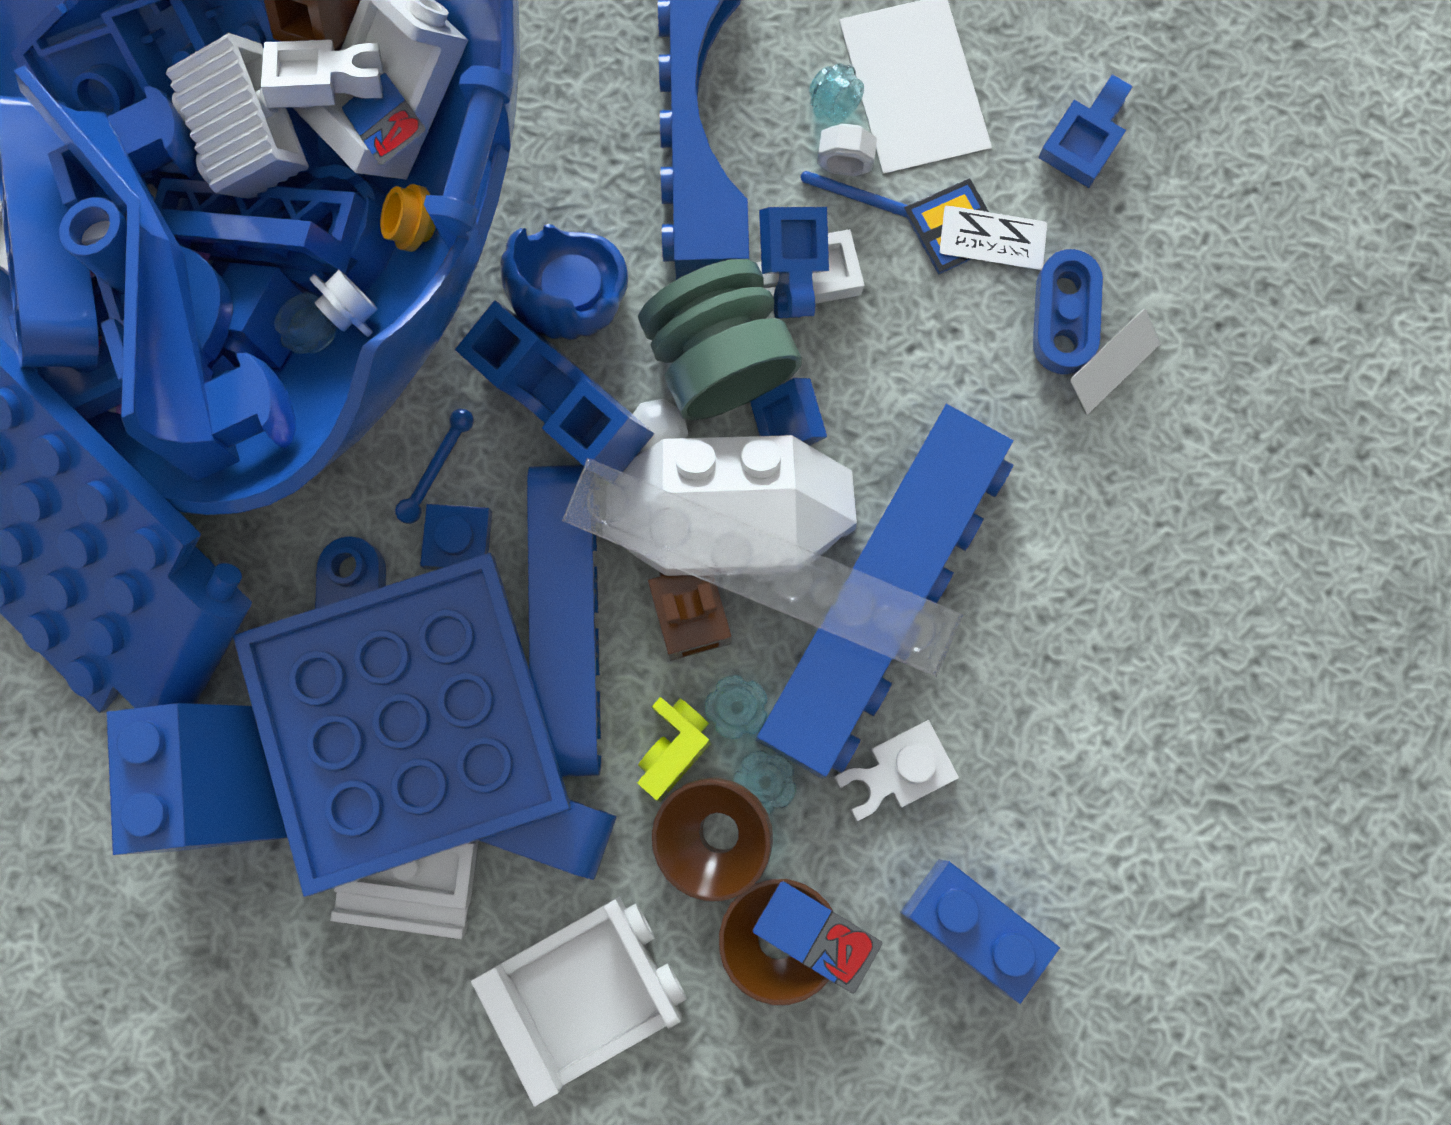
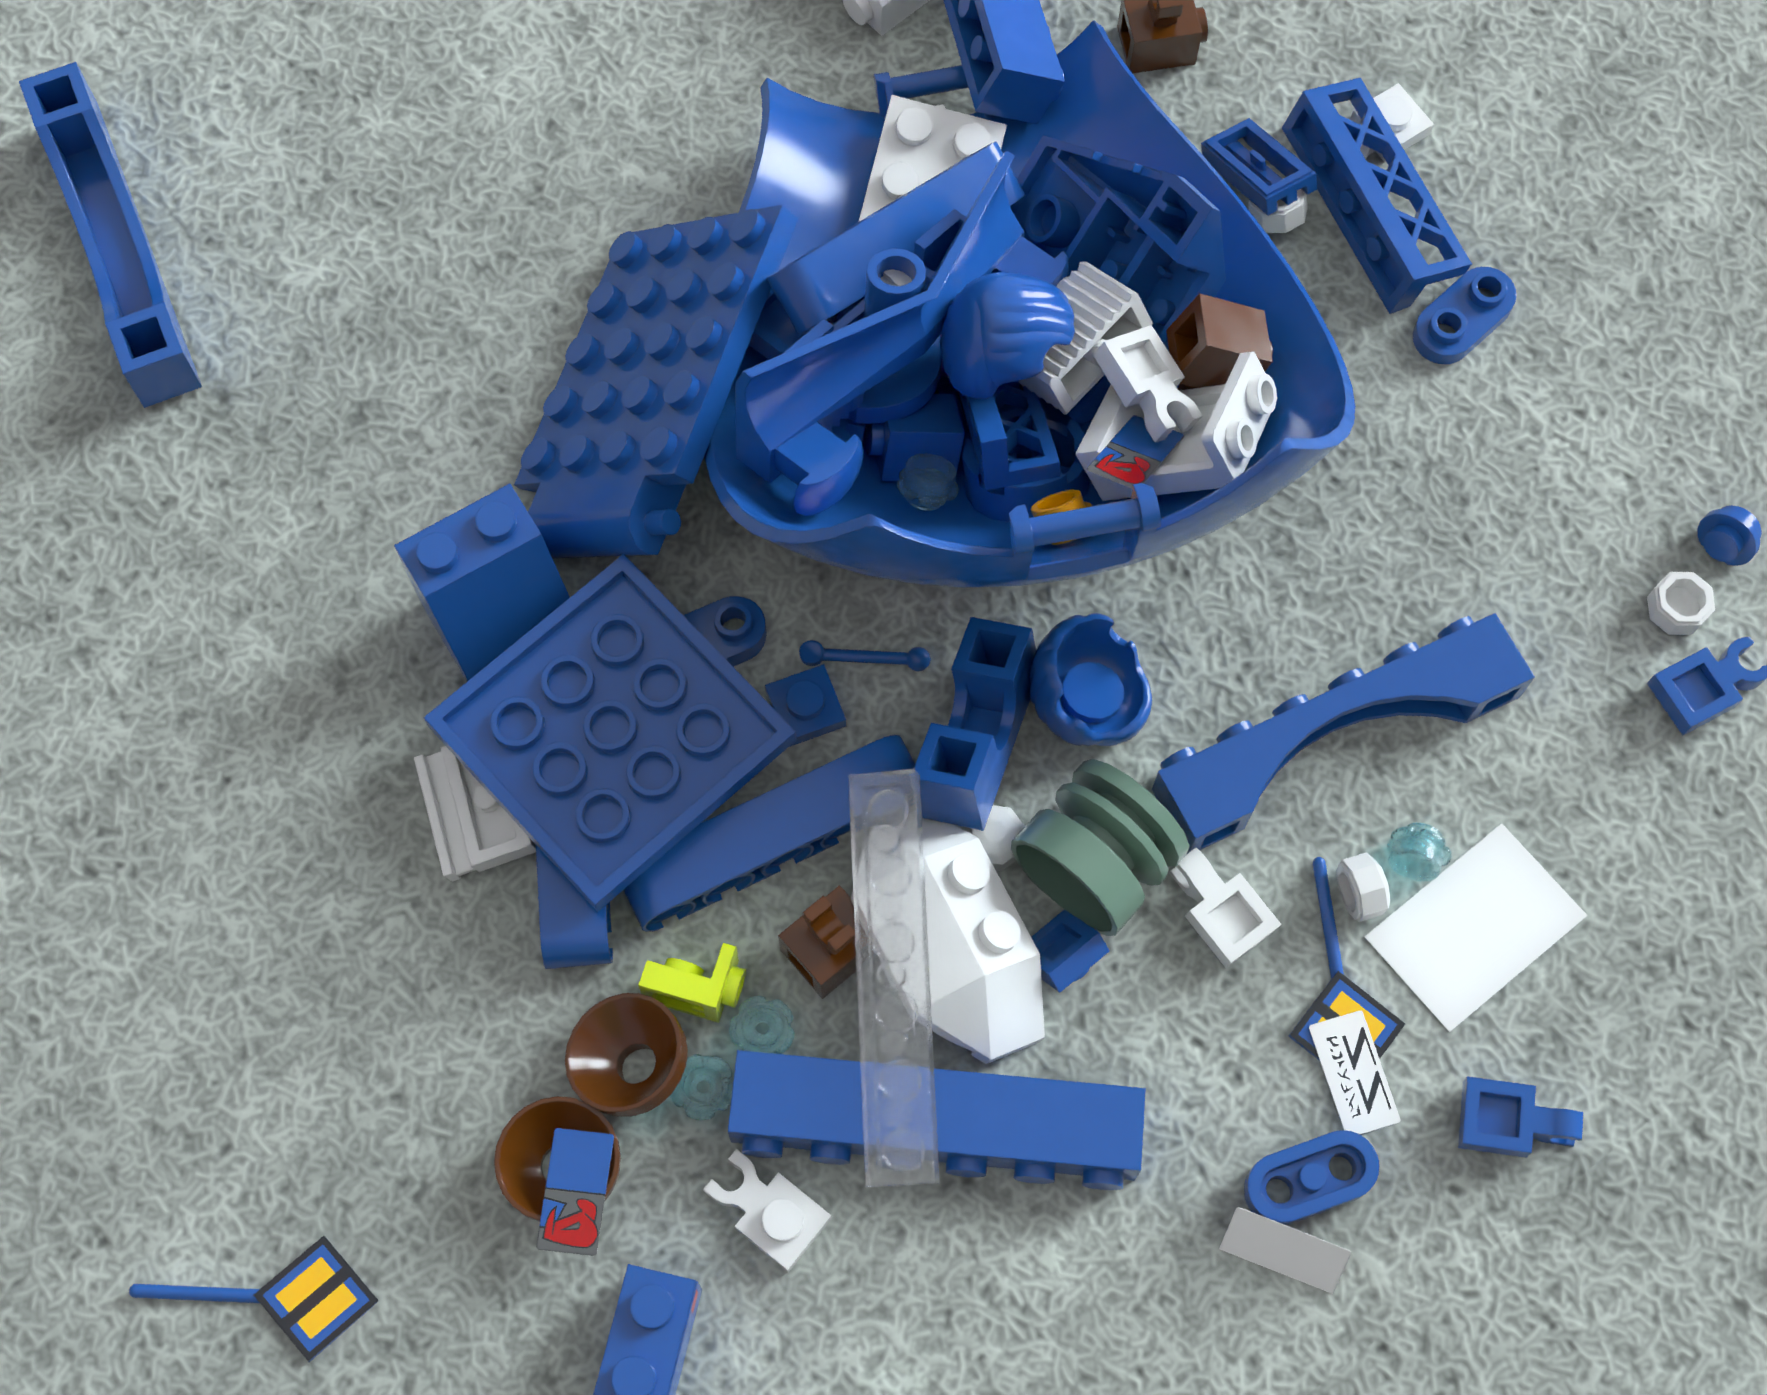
camera: 65 degrees right, 10 degrees down
(202, 171) = (1002, 331): none -> blue piece
(344, 302) = (957, 501): white plate -> none
(579, 998) = (433, 1004): white panel -> none
(794, 247) = (1226, 873): blue plate -> none

